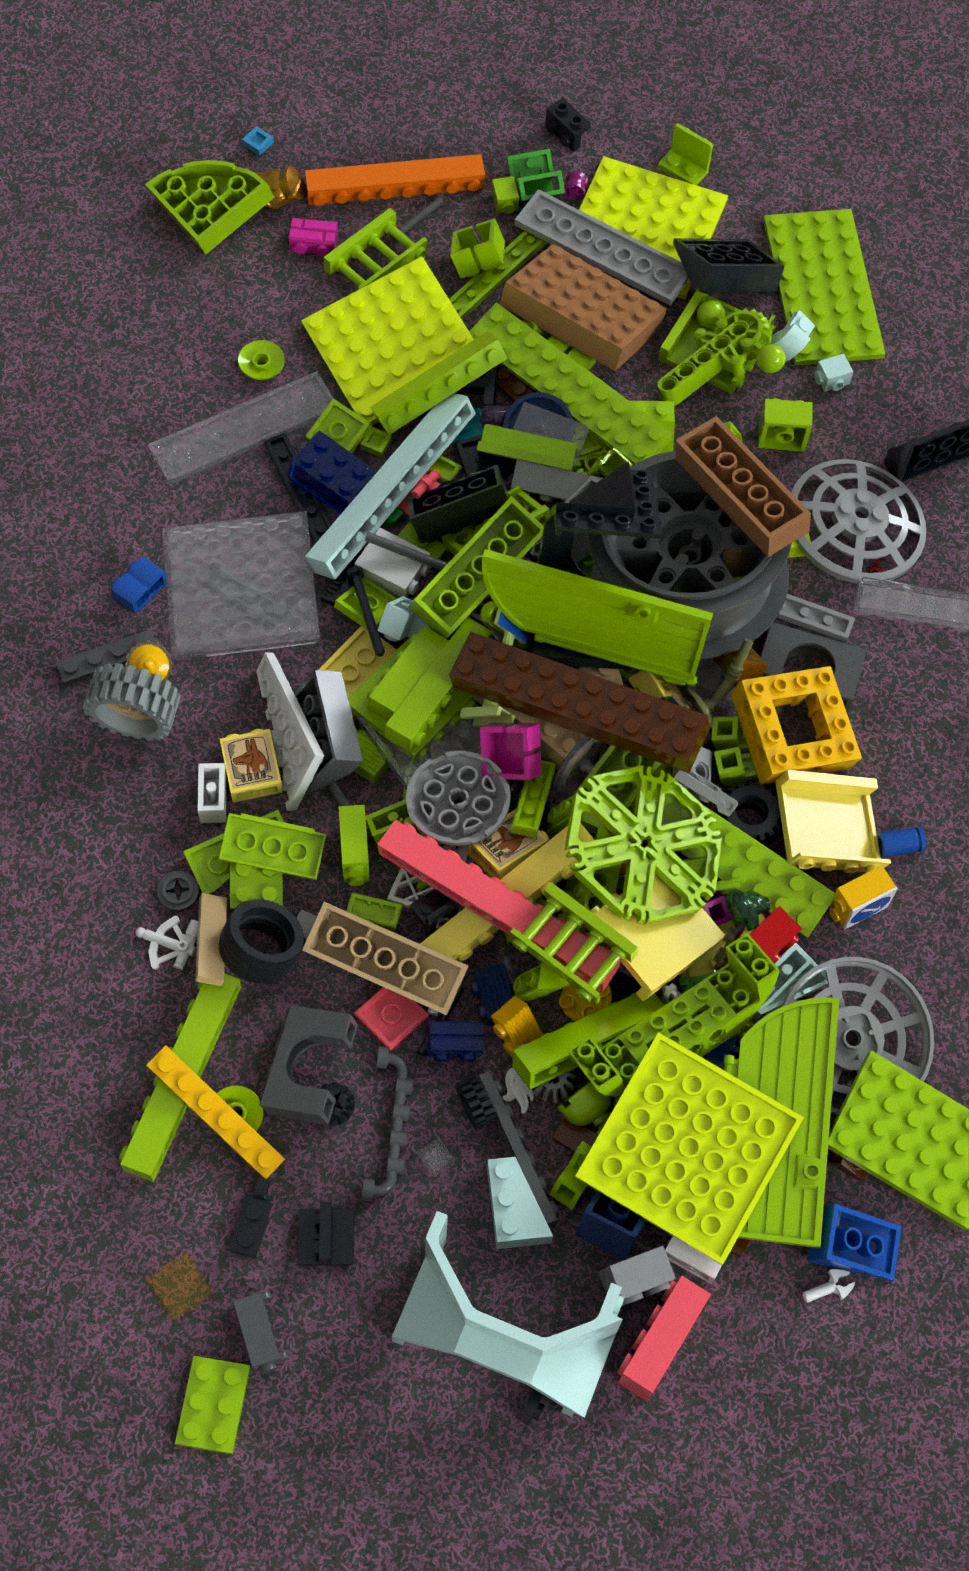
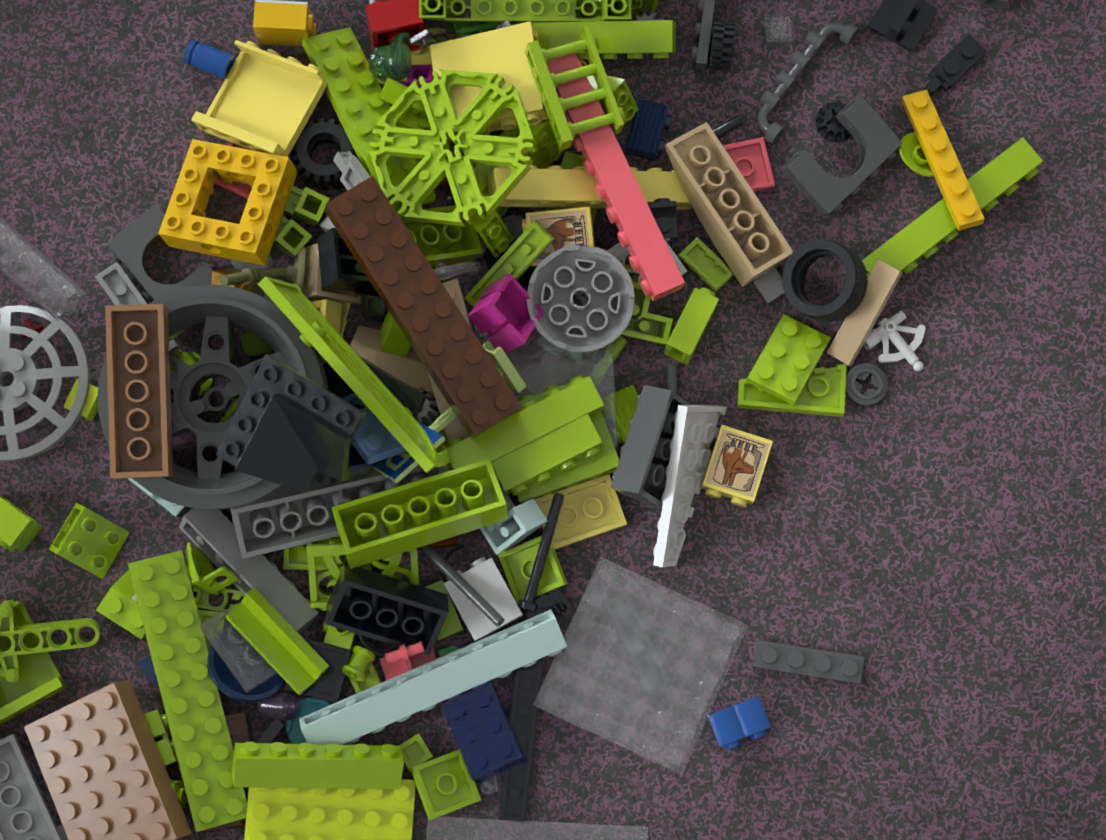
camera: 145 degrees left, 15 degrees up
(131, 702) = (820, 575): light grey wheel -> none
(150, 657) = (776, 623): yellow piece -> none
(180, 1286) = (1038, 48): clear yellow piece -> none
(212, 793) = (788, 453): white brick -> none
(272, 845) = (764, 364): lime piece -> none
(454, 1040) = (703, 105): clear blue brick -> none
(456, 467) = (358, 663): none -> lime bush
(515, 1024) = (651, 83): yellow brick -> none
(517, 1090) = (681, 47): white piece -> none

